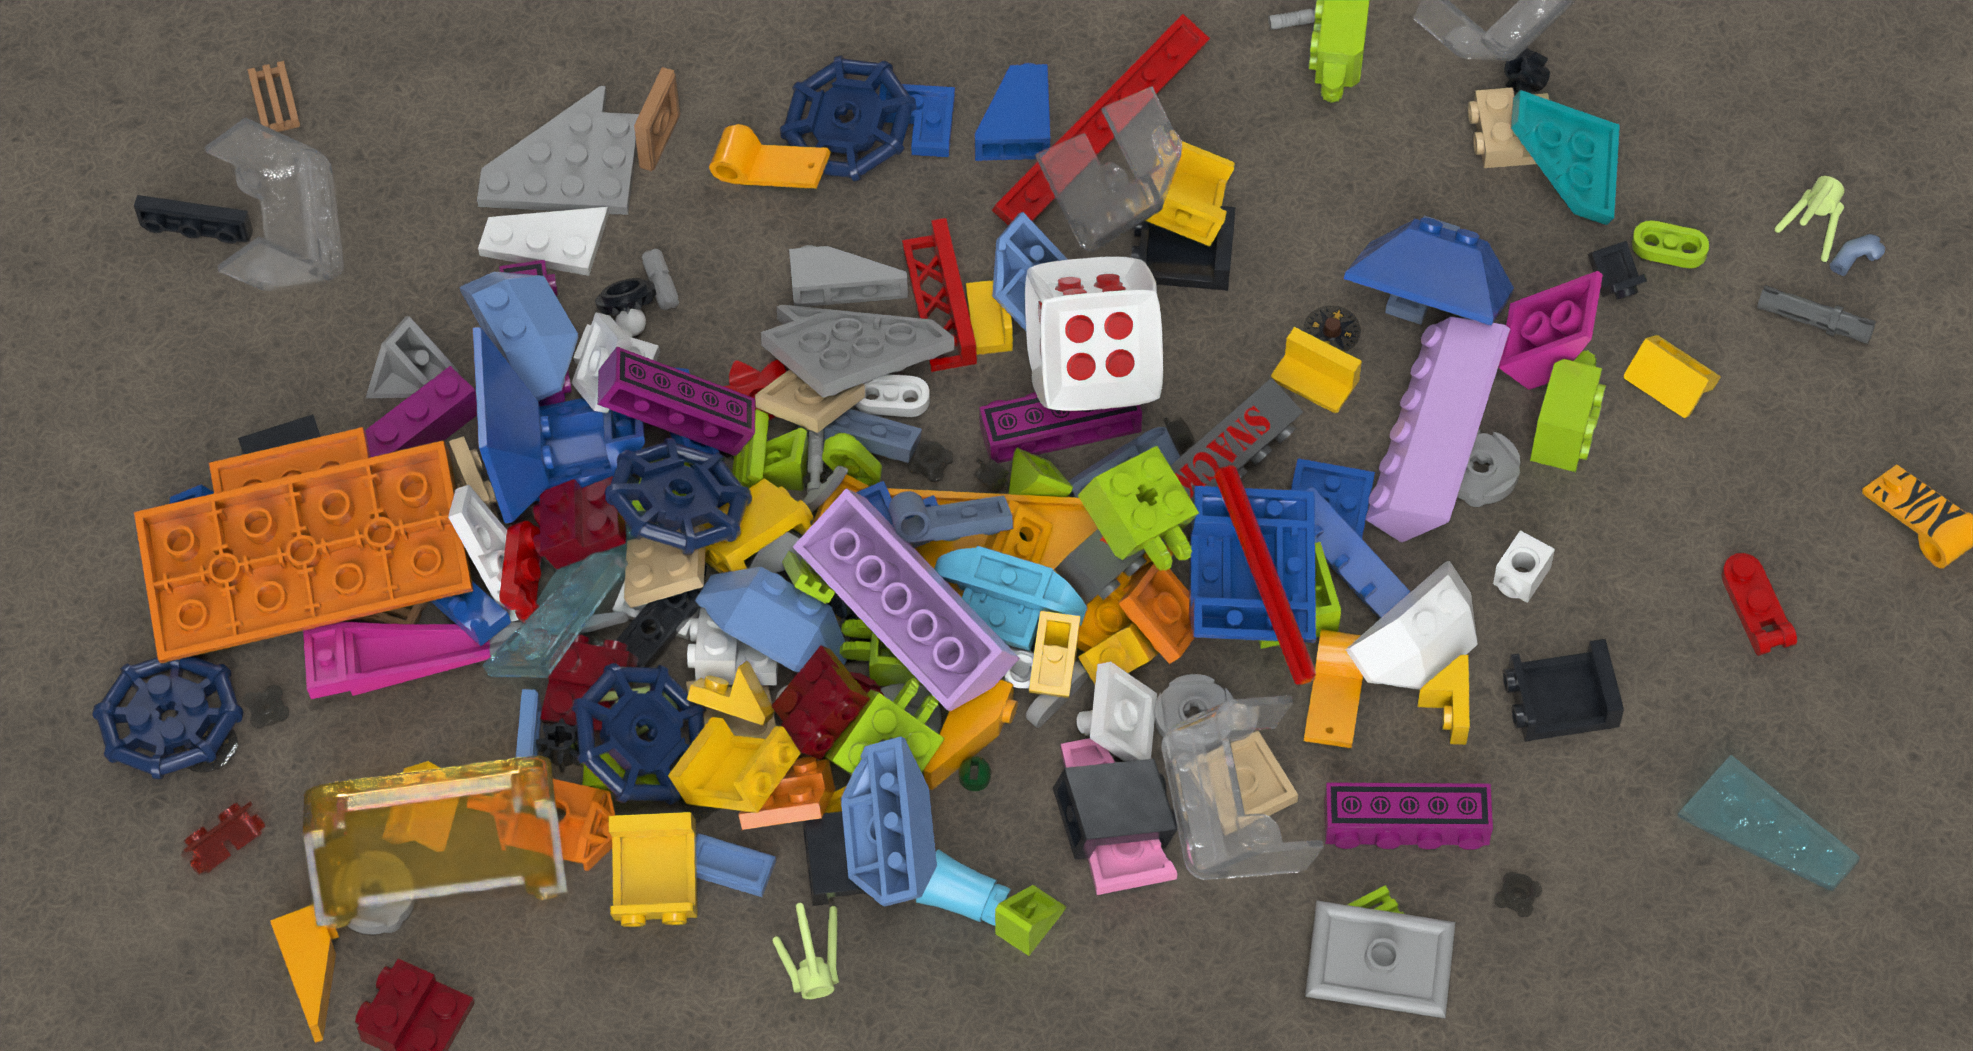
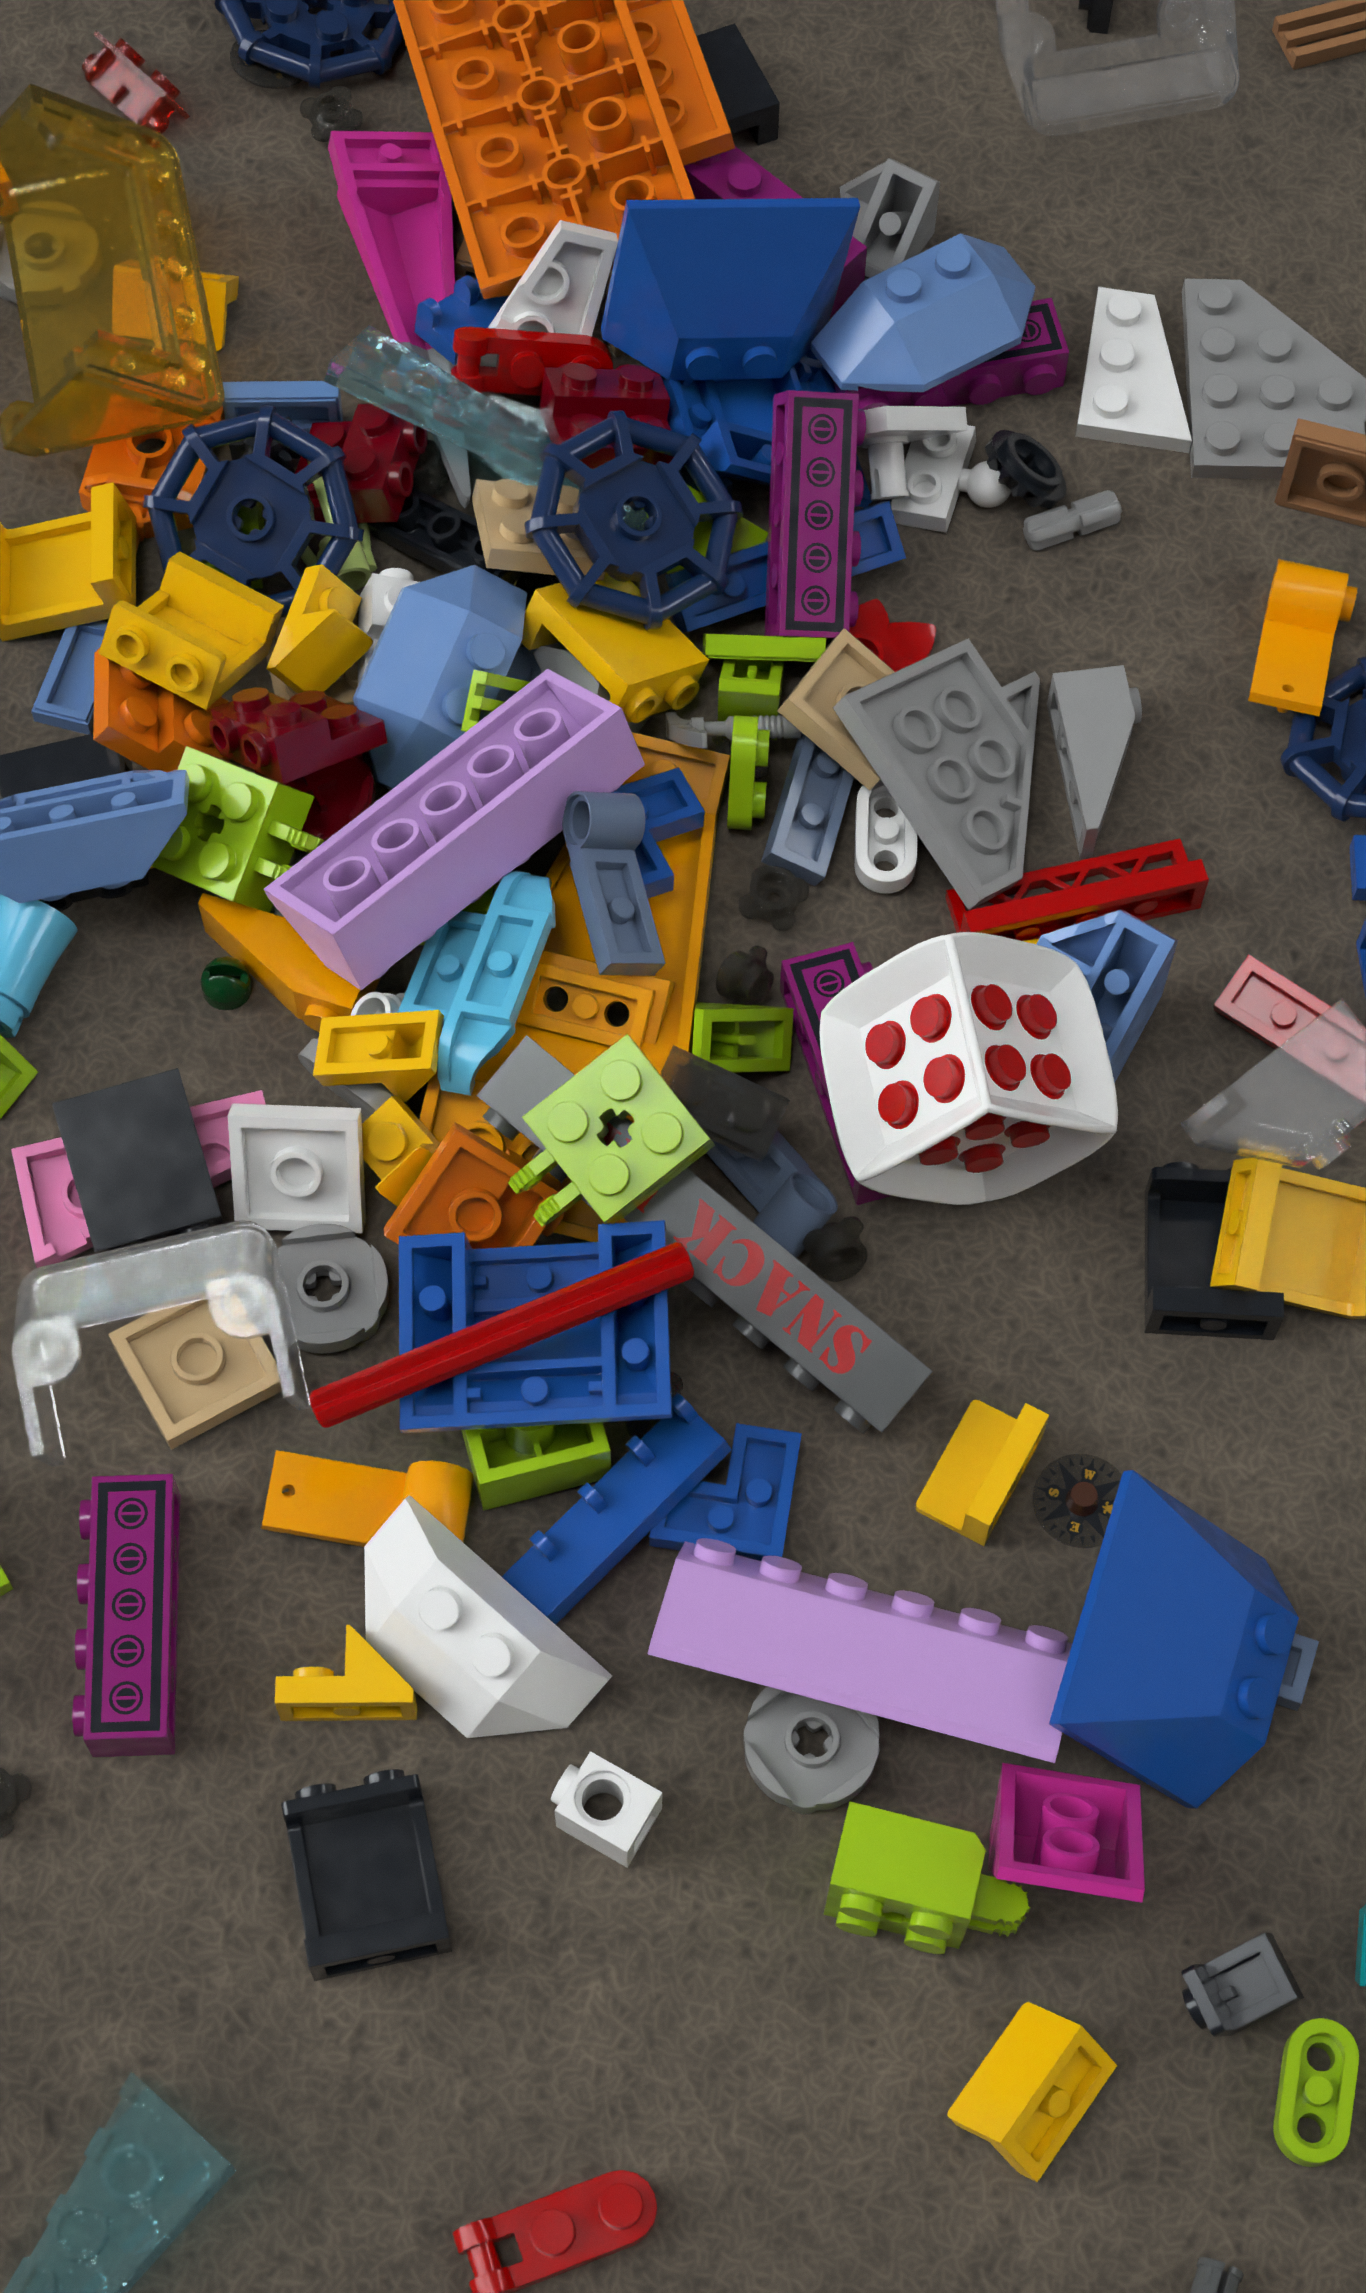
camera: 85 degrees right, 5 degrees up
(1097, 460) = (724, 1103): none -> clear smoke plate

